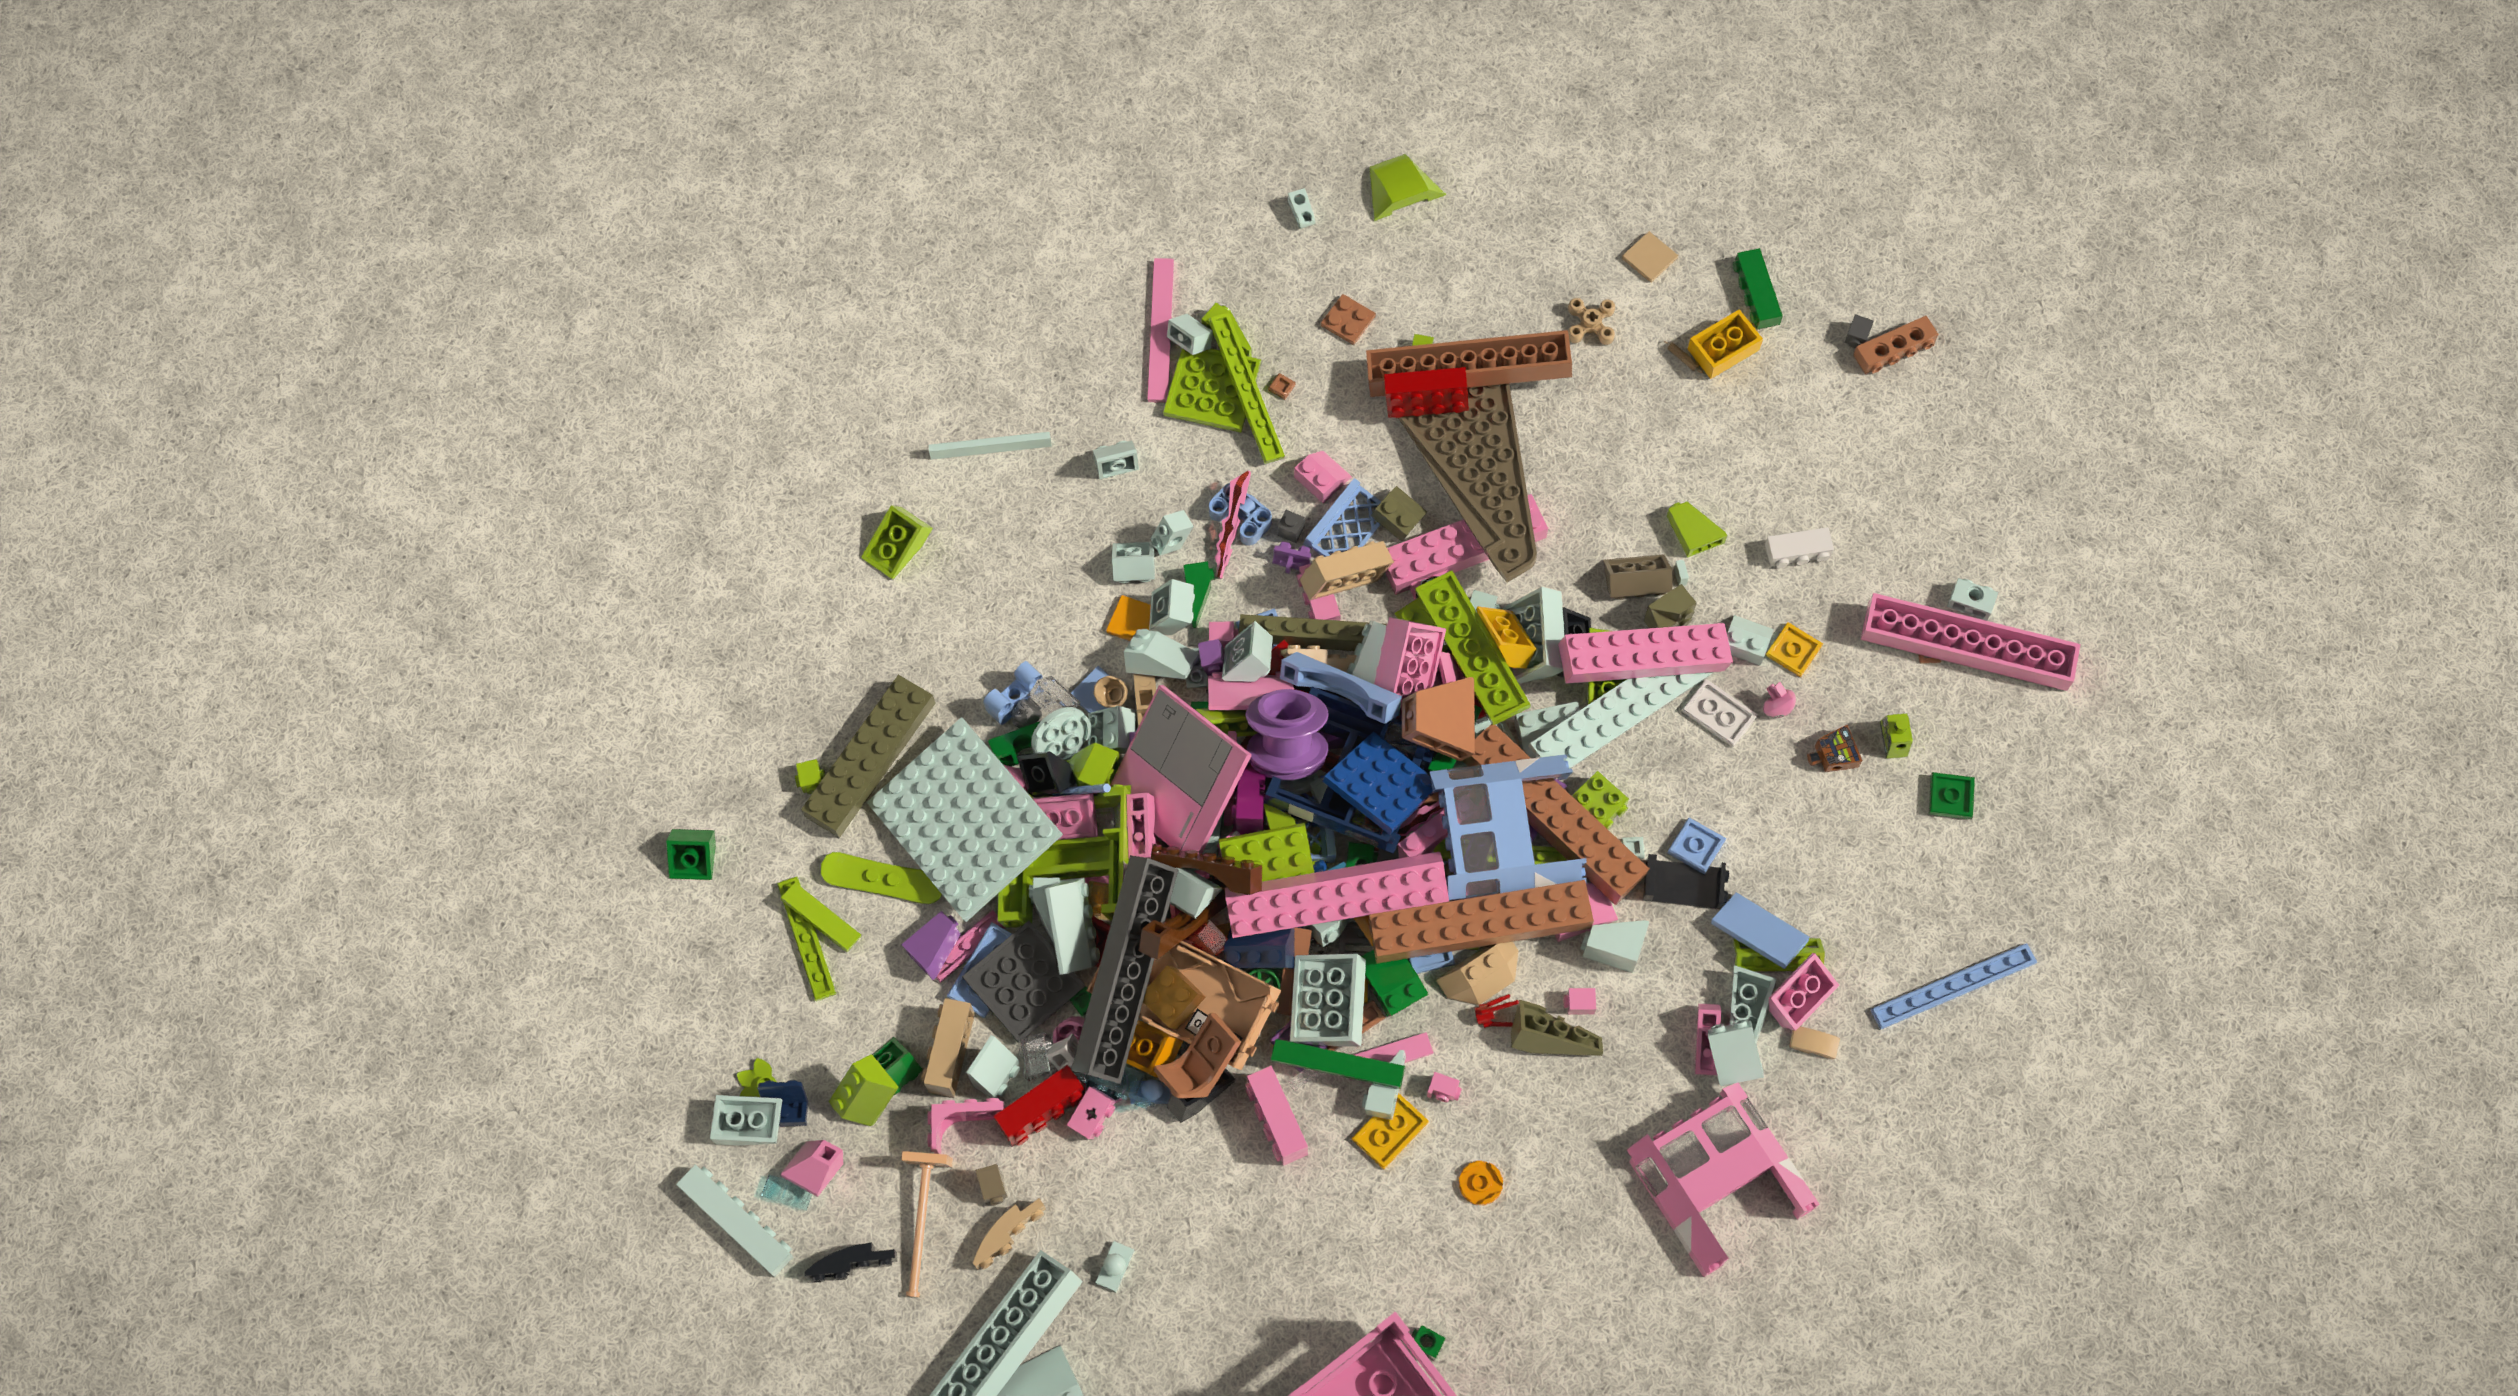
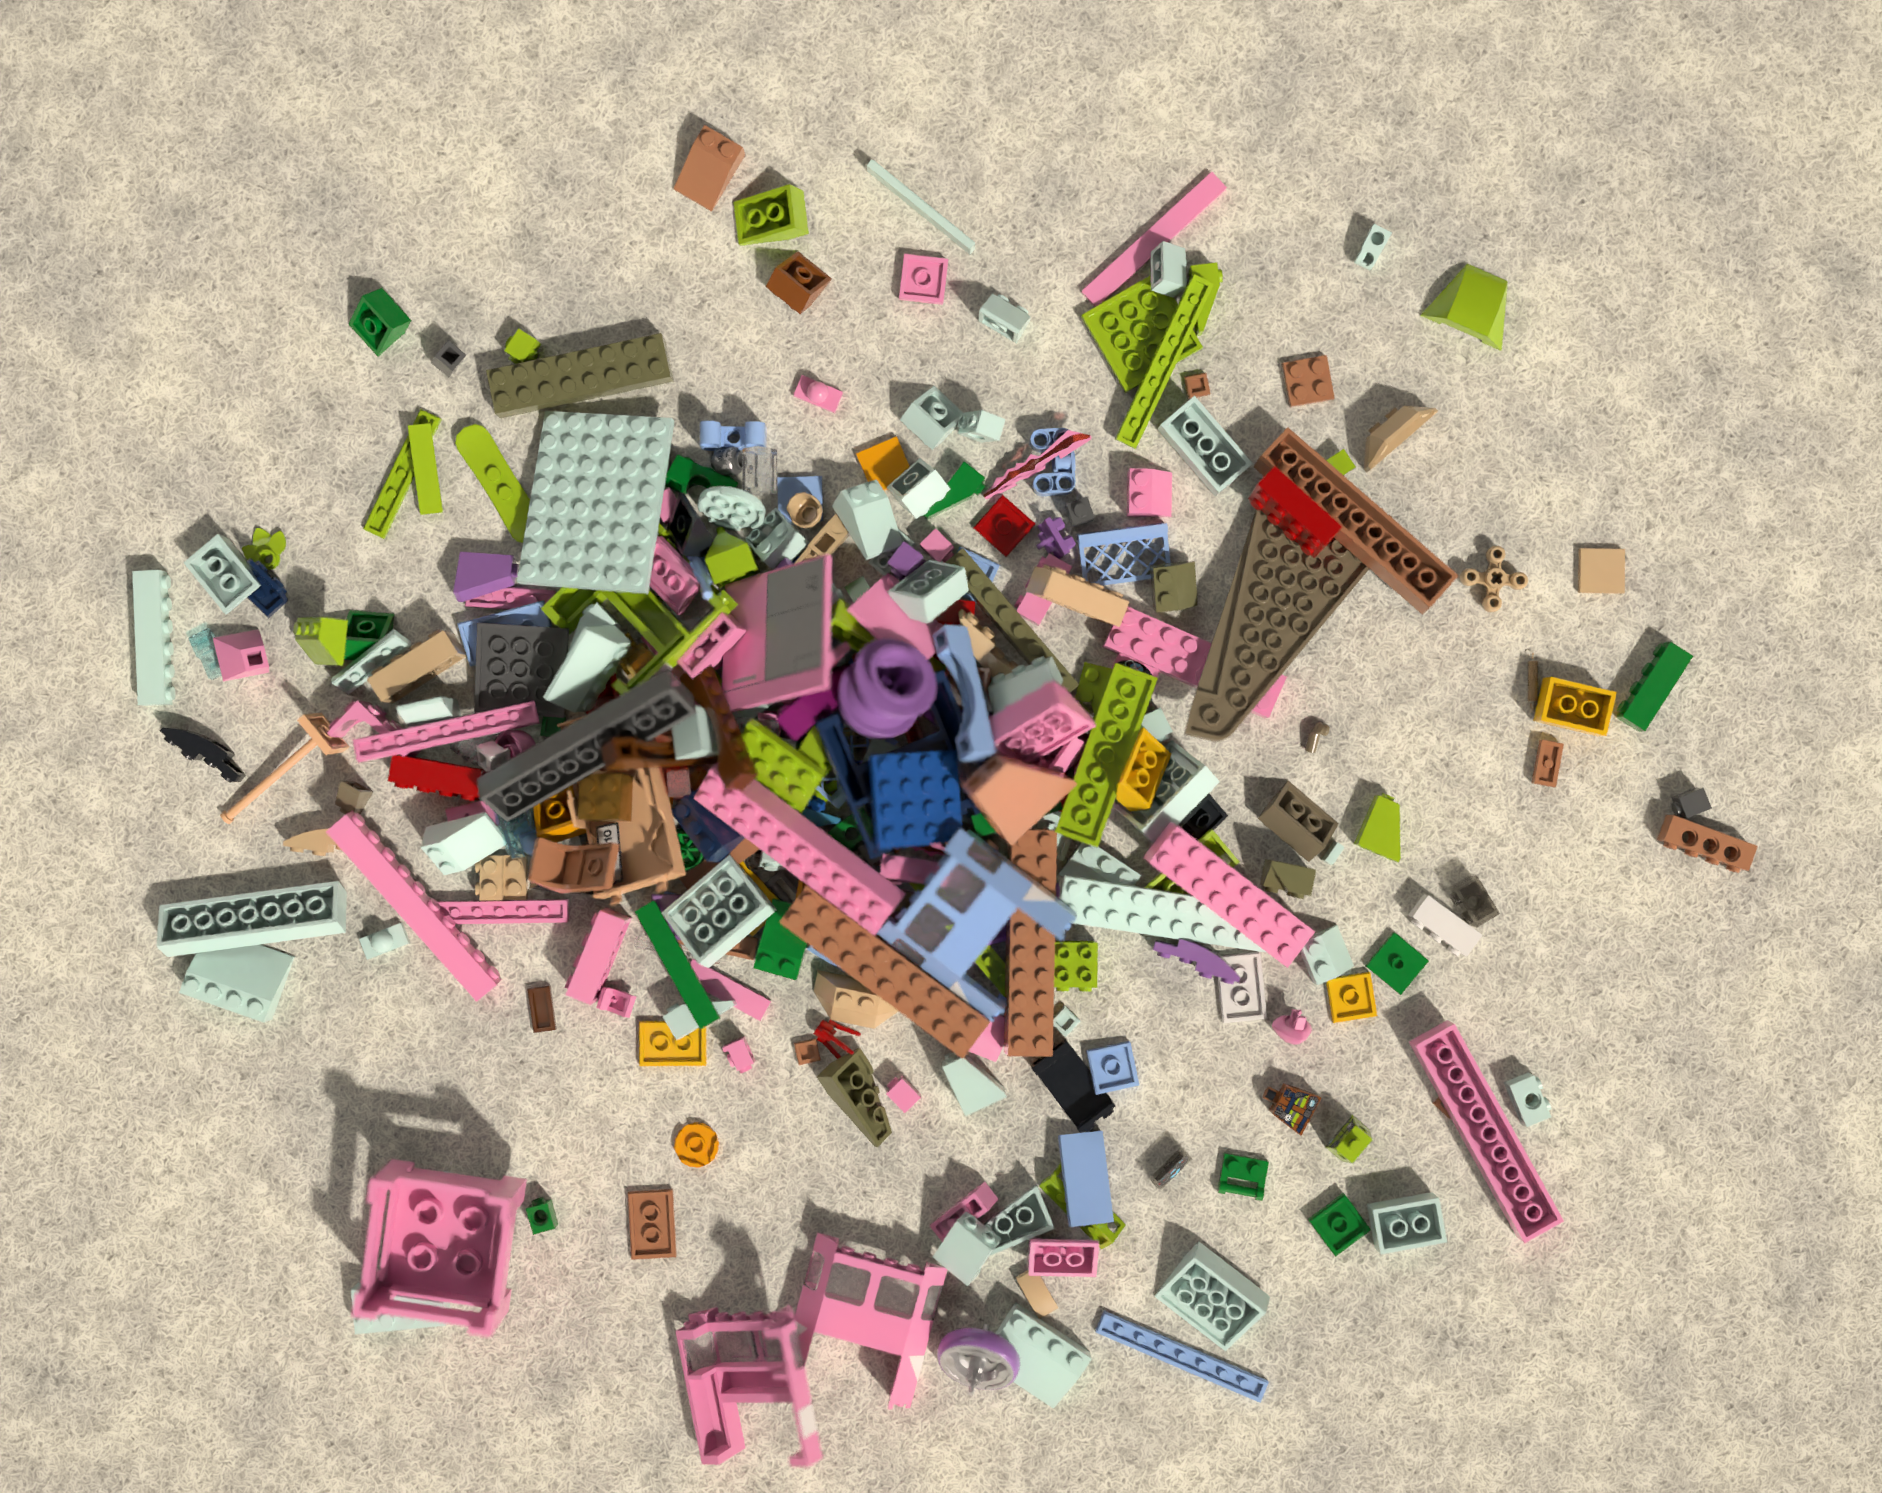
camera: 40 degrees right, 20 degrees up
(766, 829) = (448, 358): none -> dark grey brick
(824, 550) = (709, 168): none -> nougat slope
(911, 1083) = (378, 655): none -> light aqua tile
(956, 564) = (798, 282): none -> dark orange slope
(1015, 1065) = (445, 731): none -> bright pink tile
(1037, 486) = (923, 279): none -> bright pink plate
(1041, 618) = (818, 394): none -> bright pink tile
(1102, 1131) = (461, 842): none -> light aqua slope
(1113, 1211) = (414, 905): none -> bright pink brick
(1154, 1136) = (502, 878): none -> tan plate
(1176, 1161) = (507, 911): none -> bright pink plate
(1251, 583) = (1004, 526): none -> red tile
(1275, 1200) = (542, 1009): none -> reddish brown tile
(1322, 1139) = (616, 1001): none -> bright pink bracket
(1326, 412) = (1204, 446): none -> light aqua brick
(1434, 297) = (1393, 432): none -> tan wedge
(1487, 1041) = (807, 1051): none -> nougat tile
(1509, 1270) = (652, 1224): none -> nougat tile
(1587, 510) = (1314, 735): none -> dark tan arm
(1678, 1286) = (744, 1362): none -> bright pink piece
(1679, 714) = (1207, 961): none -> medium lavender slope
(1748, 393) = (1547, 763): none -> nougat plate
(1797, 600) = (1397, 963): none -> green plate
(1806, 871) = (1170, 1168): none -> clear smoke slope
(1808, 510) = (1484, 907): none -> clear smoke brick
(1833, 1129) = (978, 1359): none -> flat silver wheel
(1853, 823) = (1245, 1169): none -> green plate
(1861, 1085) = (1047, 1357): none -> light aqua slope
(1928, 925) = (1213, 1297): none -> light aqua slope
(1990, 748) = (1407, 1223): none -> light aqua brick

